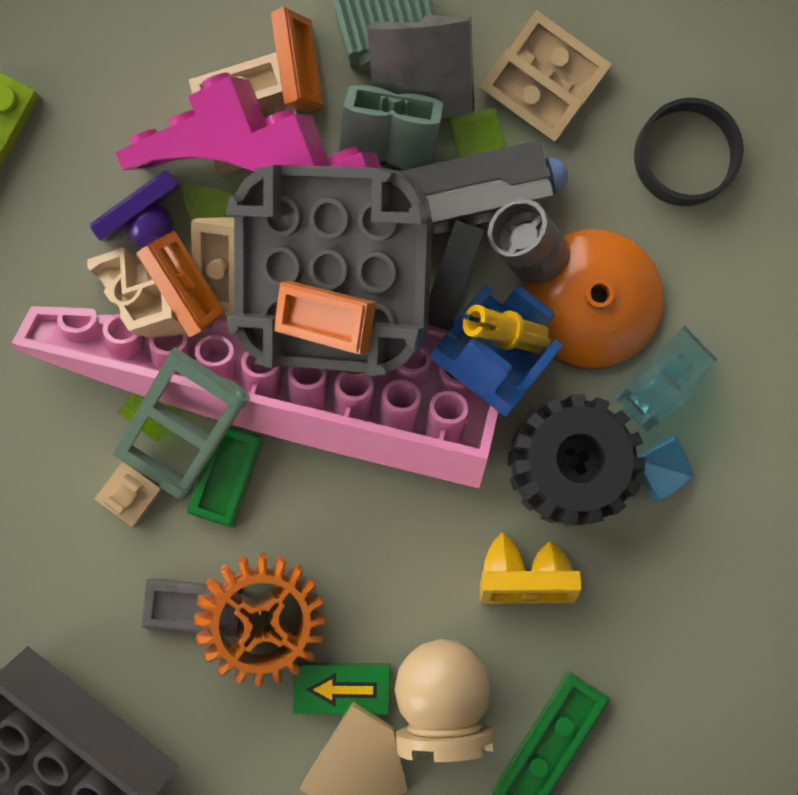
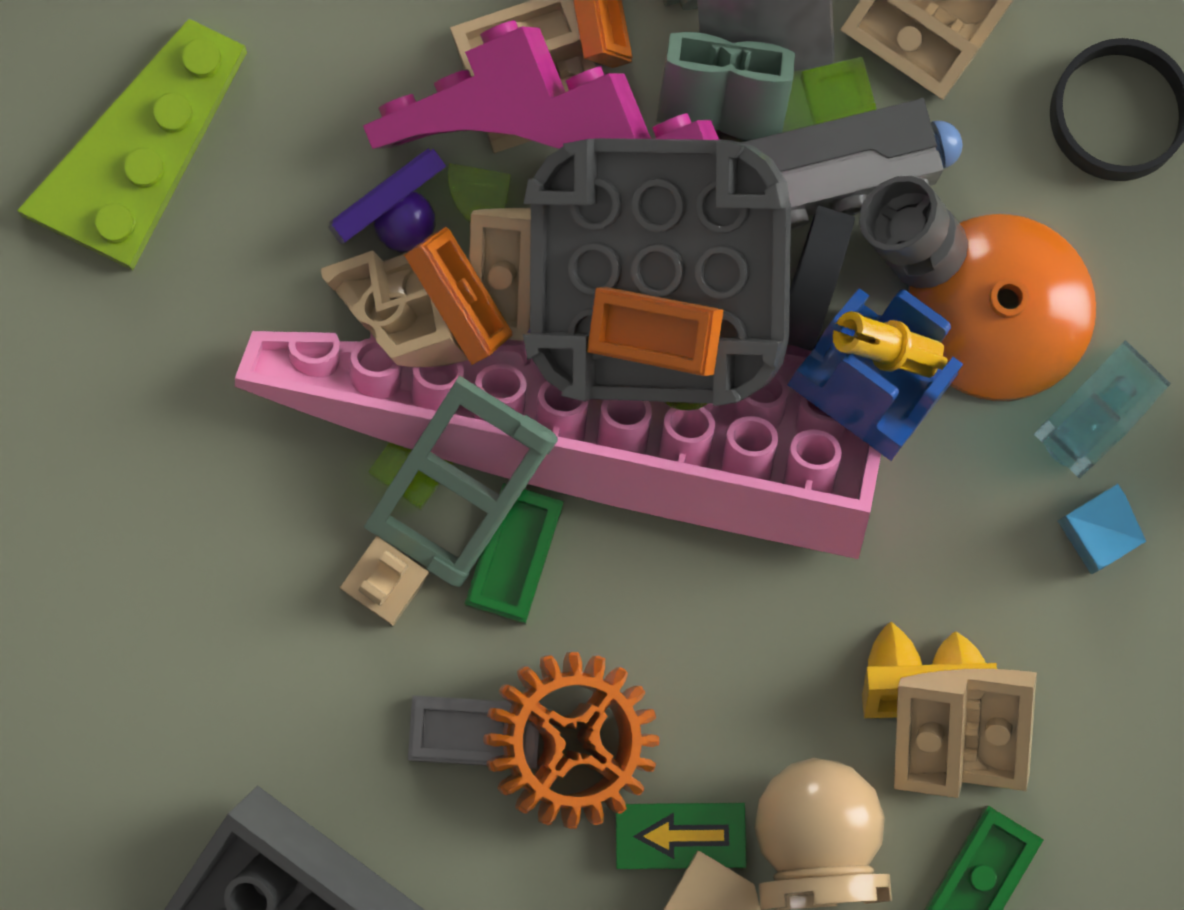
camera: 10 degrees left, 5 degrees down
(554, 618) = (964, 730): none -> tan slope
(606, 457) = (979, 480): black wheel -> none

